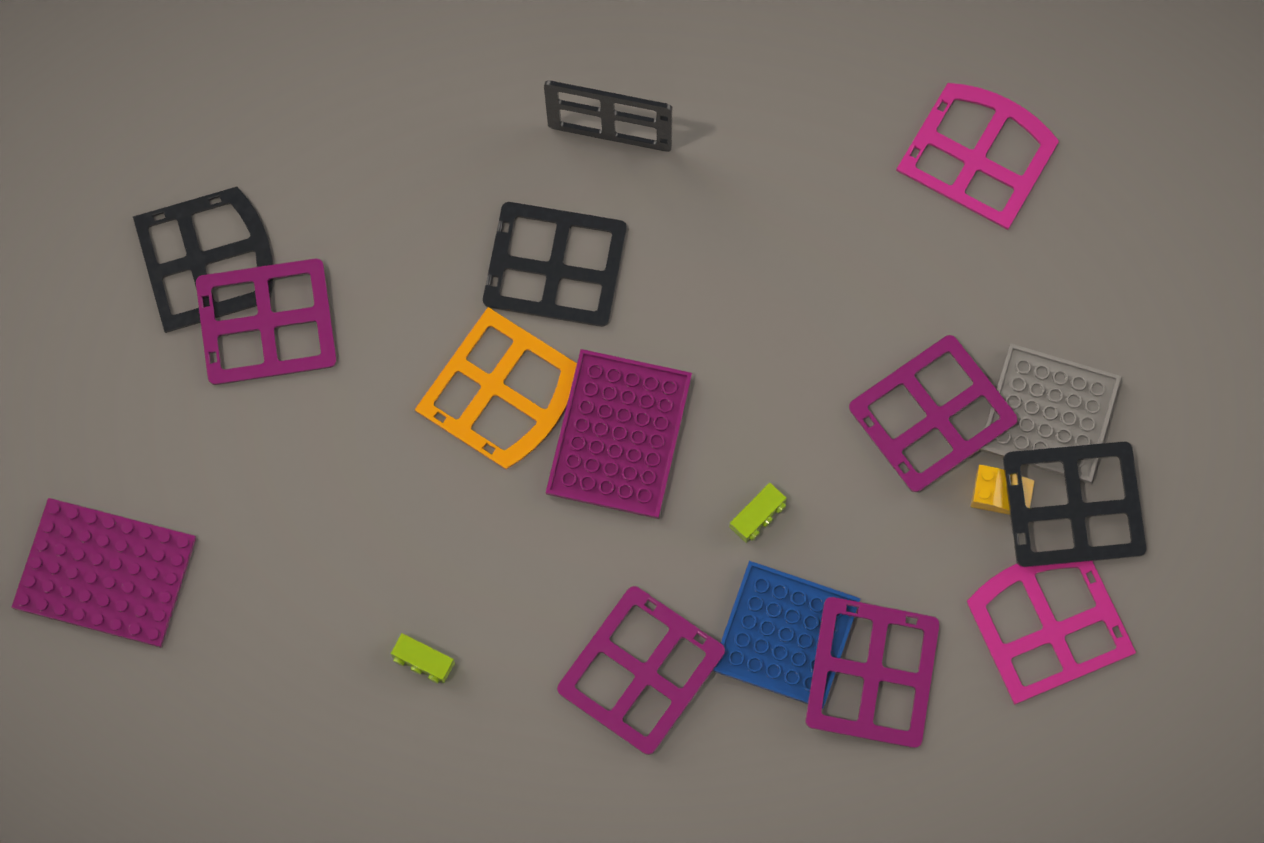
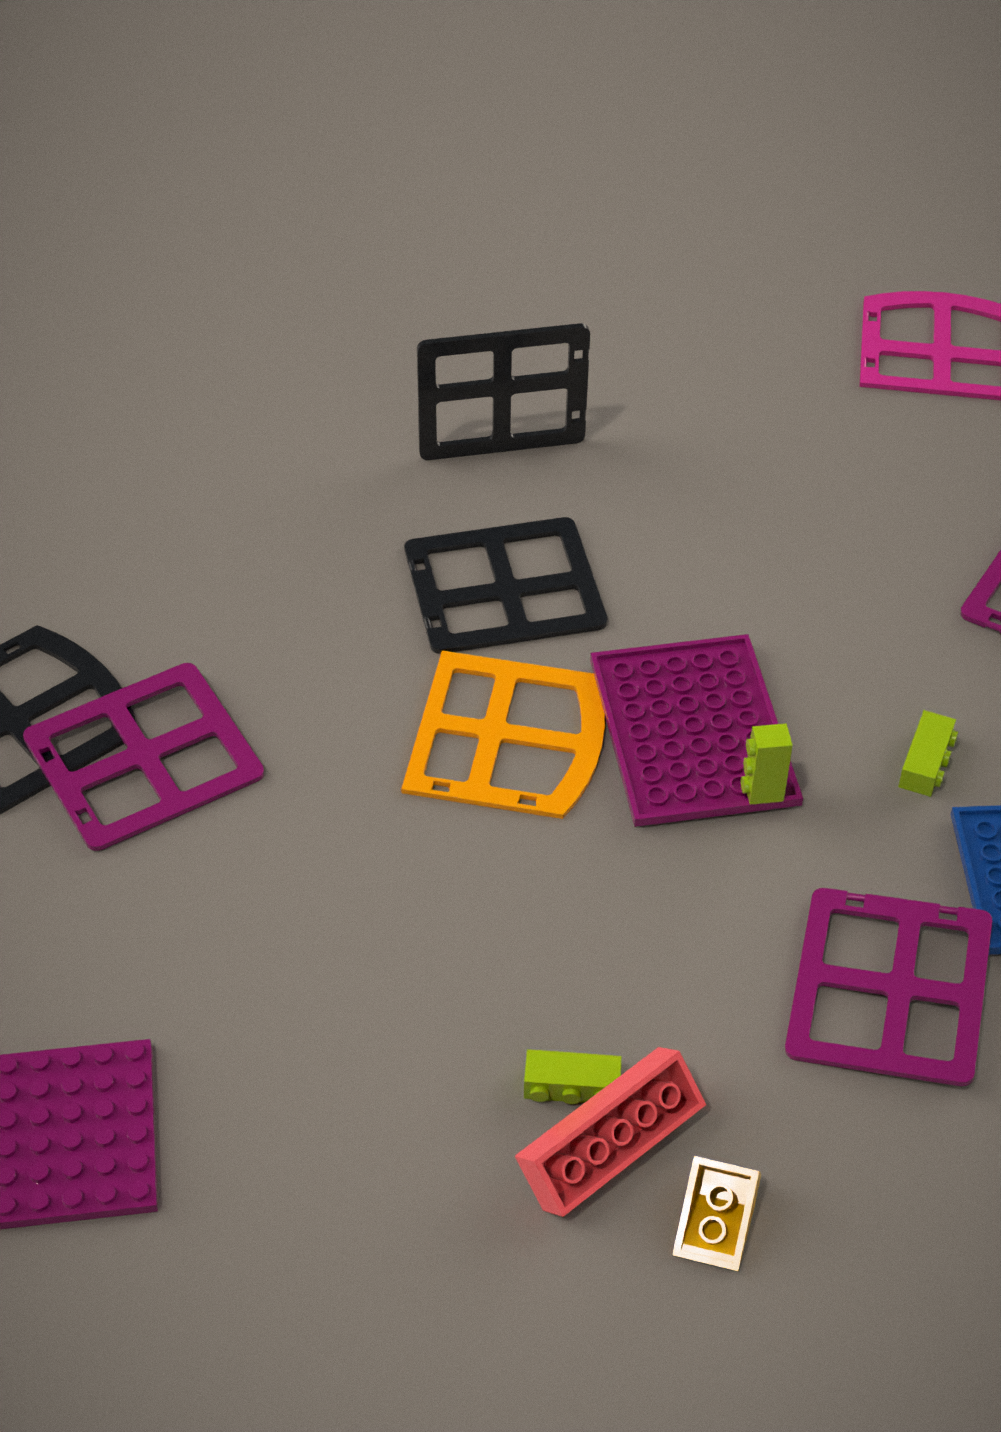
camera: 25 degrees left, 25 degrees down
(423, 705) = (610, 1131): none -> coral brick
(462, 775) = (716, 1213): none -> slope
(635, 494) = (767, 763): none -> lime brick

